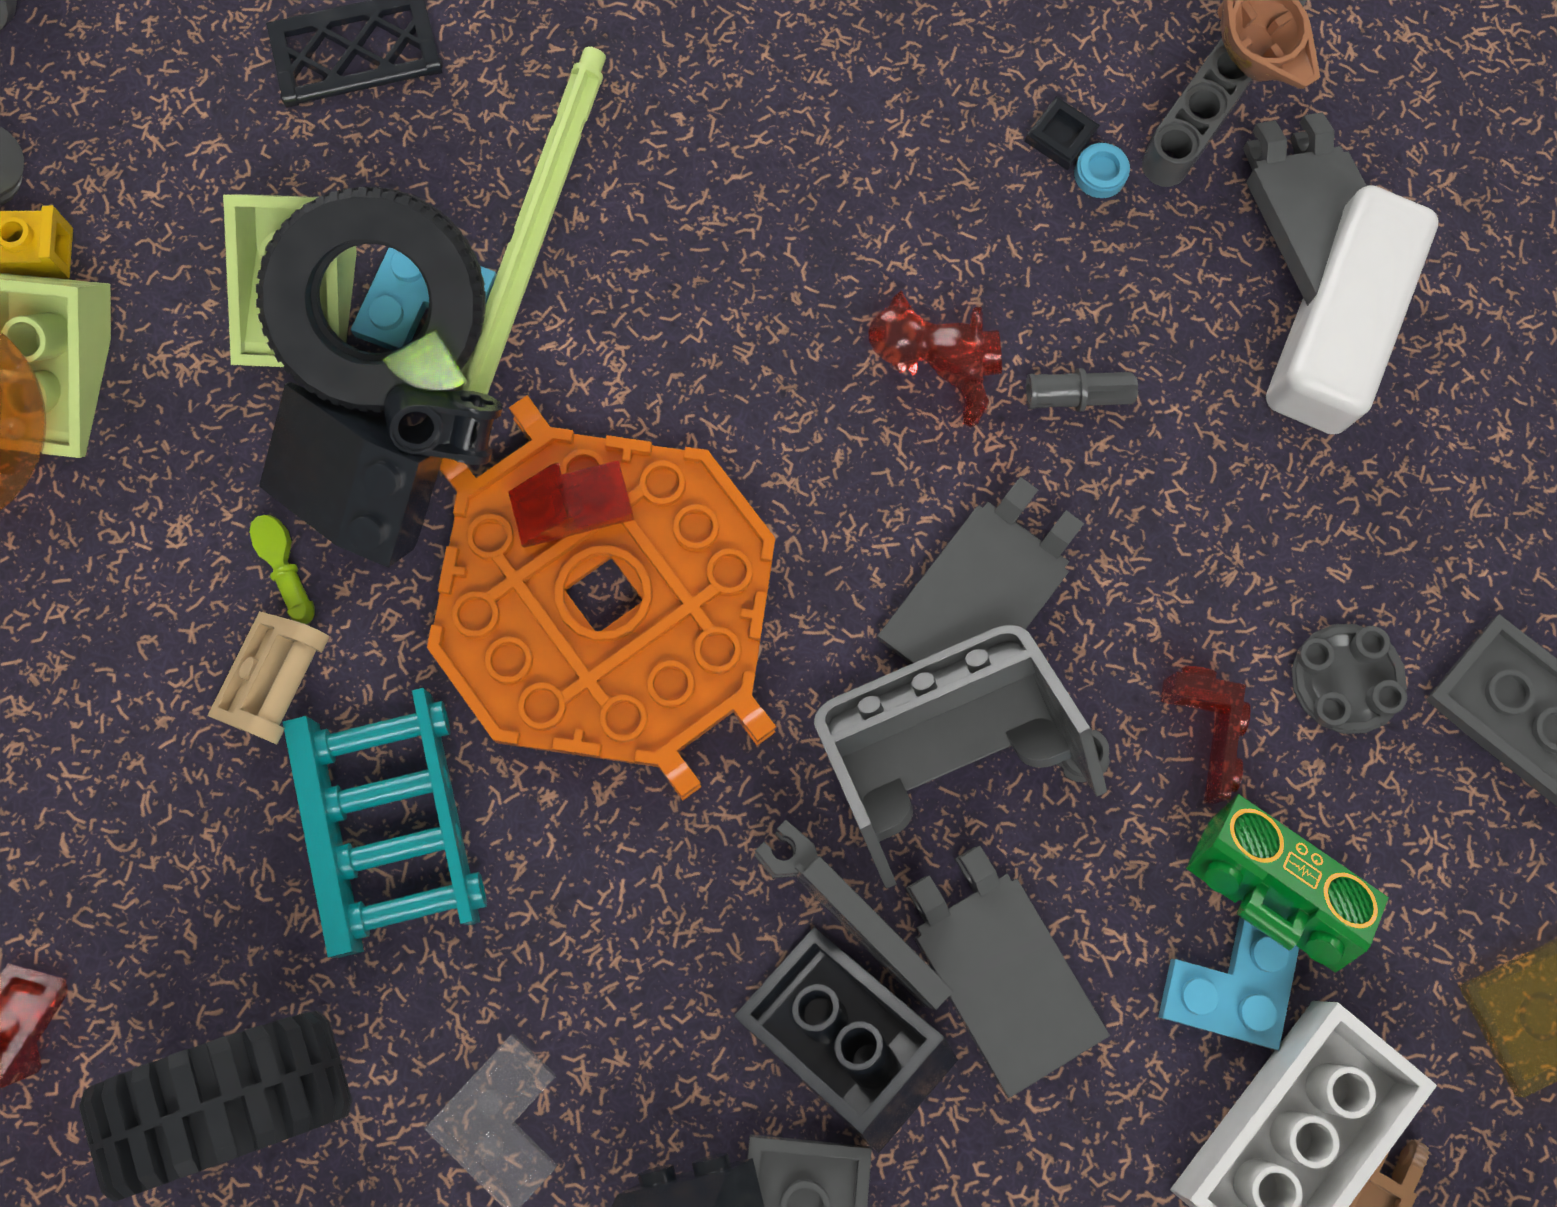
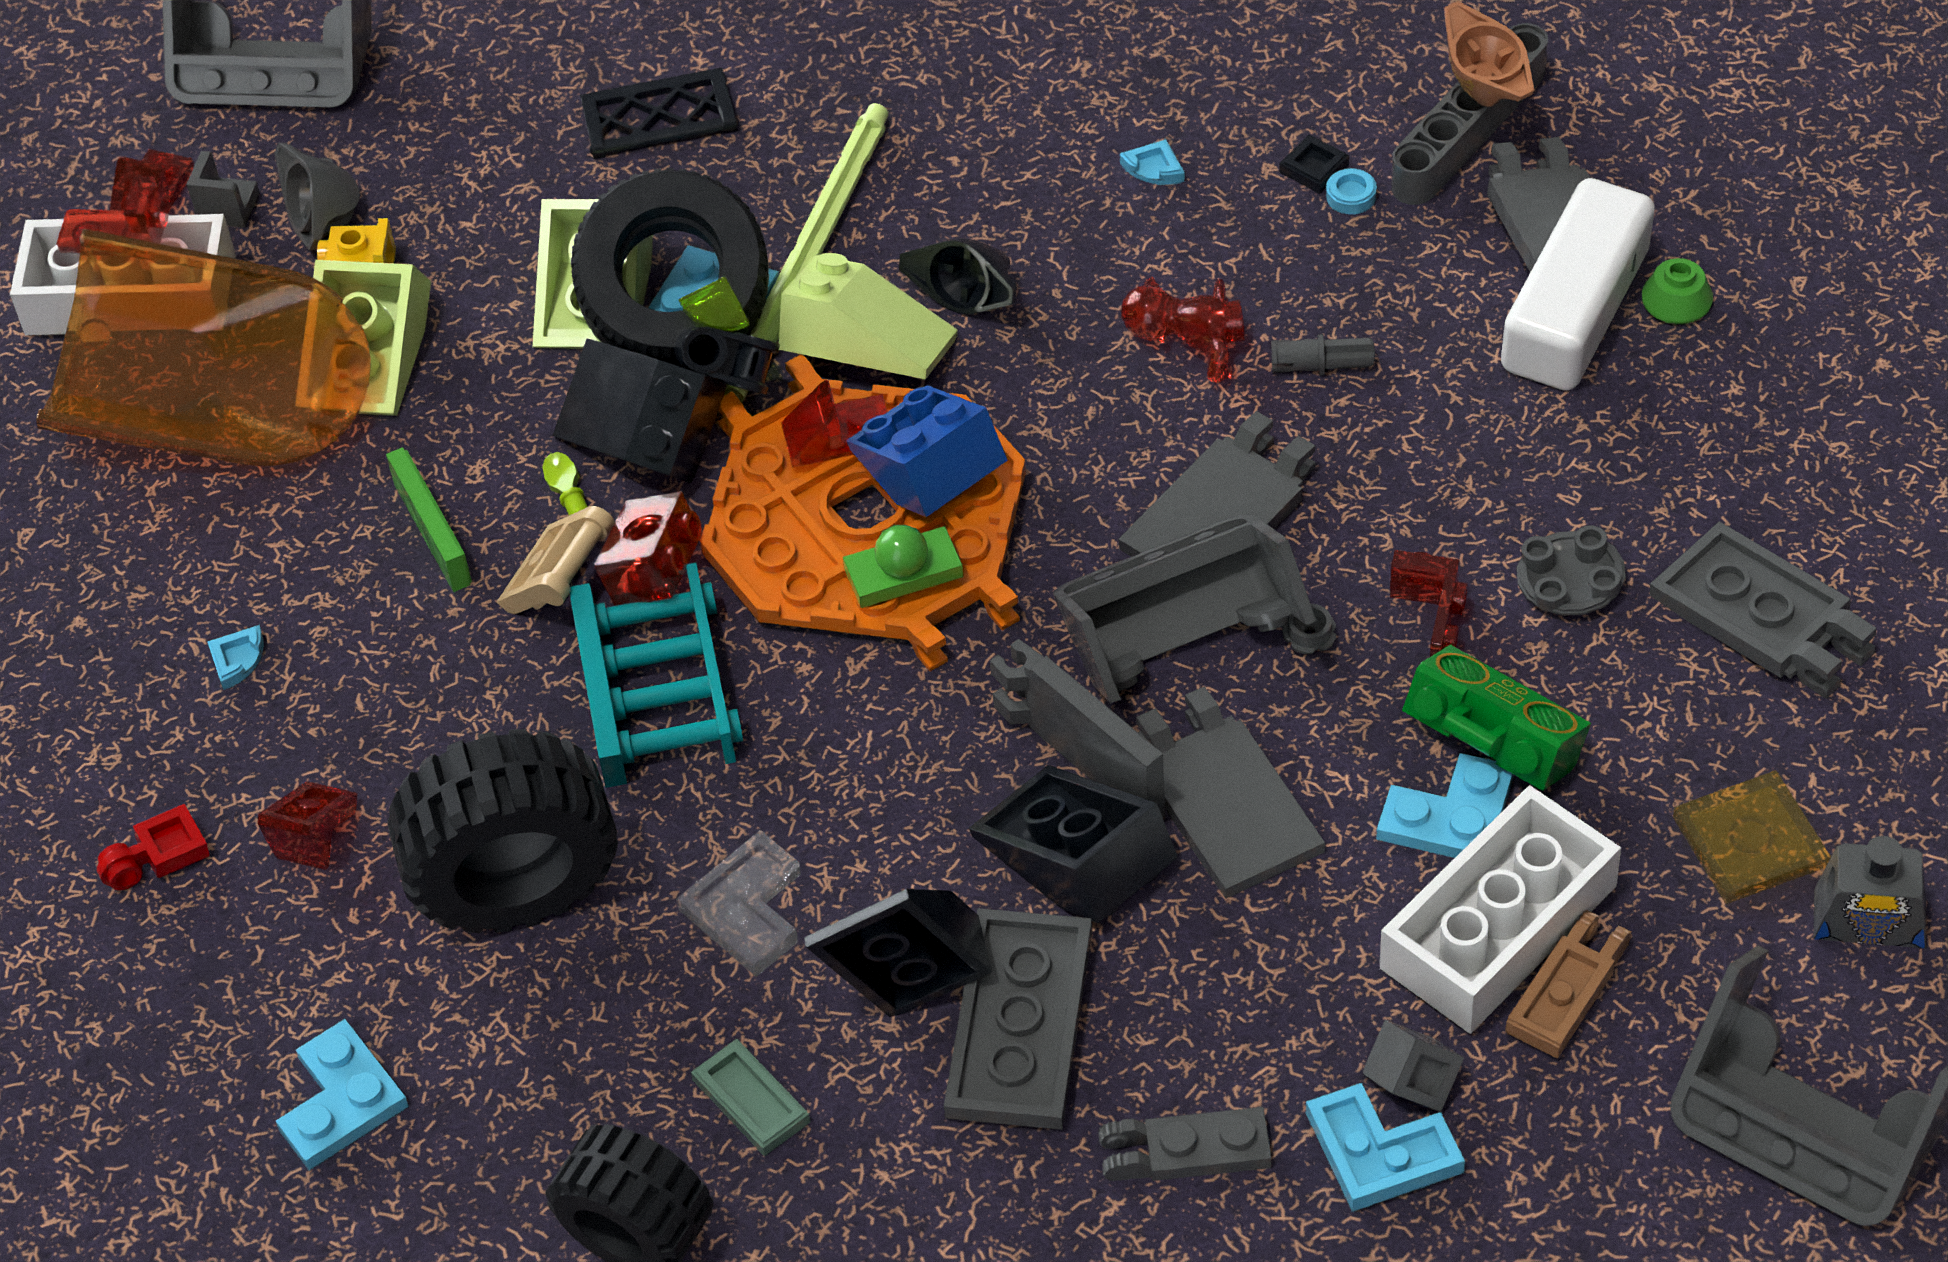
camera: 15 degrees right, 25 degrees down
(124, 611) = (429, 519): none -> bright green tile
(369, 665) = (648, 549): none -> clear red brick
(591, 353) = (860, 319): none -> yellowish green slope
(650, 691) = (902, 564): none -> bright green tile
(672, 542) = (928, 448): none -> blue slope
(699, 284) = (961, 275): none -> black hat
(893, 129) = (1153, 162): none -> medium azure tile
(1445, 313) = (1677, 292): none -> bright green cone

